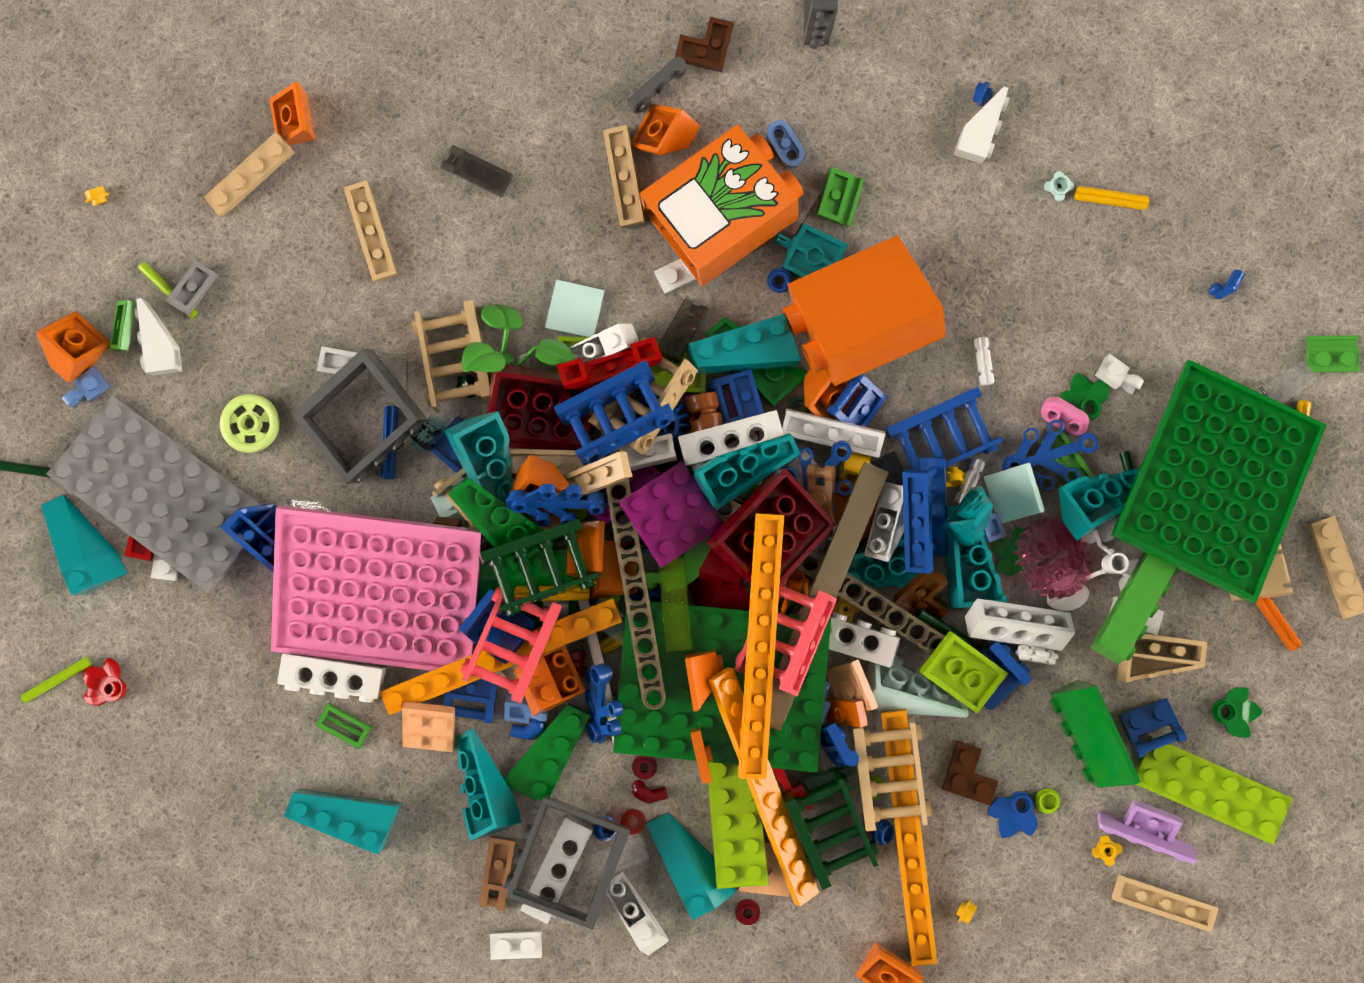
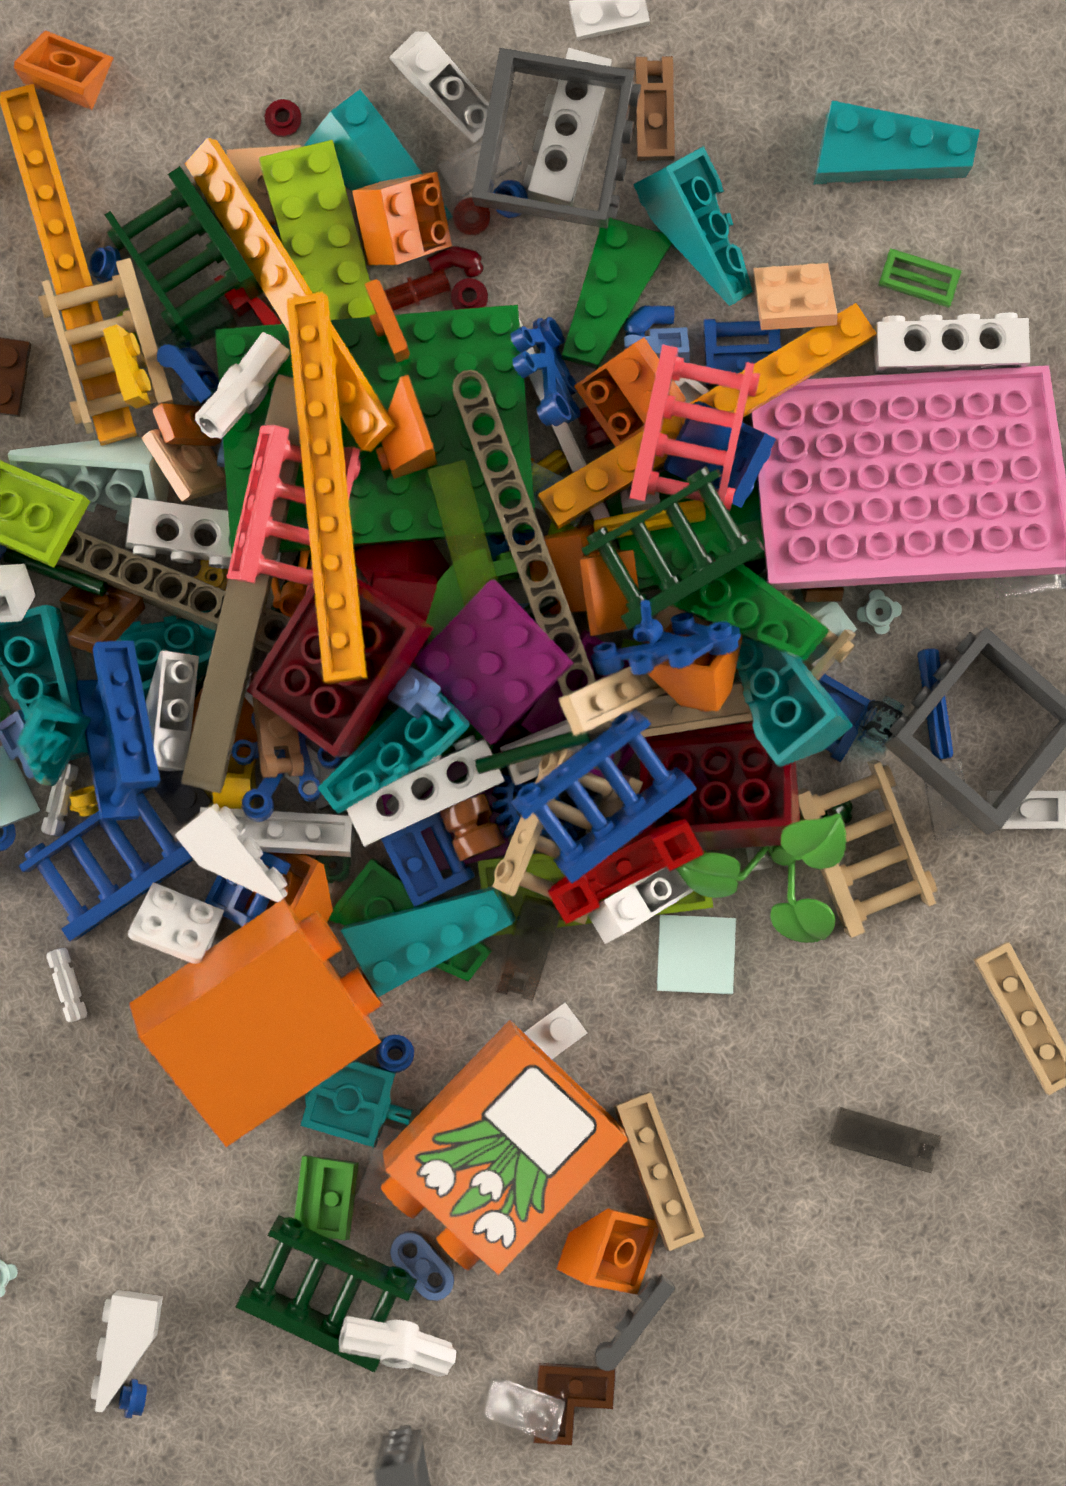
camera: 170 degrees right, 0 degrees up
(414, 501) = (889, 608): none -> light aqua plate
(564, 518) = (648, 625): none -> blue hand
(662, 450) = (531, 751): none -> dark green bar
(678, 777) = (418, 289): none -> clear red axle
(679, 826) = (402, 219): none -> orange slope
(724, 500) = (418, 693): none -> medium blue plate
(736, 43) = (524, 1409): none -> clear plate
(805, 727) = (242, 387): none -> white piece
(810, 95) = (397, 1345): none -> white piece
(859, 117) = (295, 1314): none -> dark green fence
(869, 424) = (223, 850): none -> white slope
(880, 762) = (131, 379): none -> yellow plate
(907, 383) = (176, 924): none -> white bracket

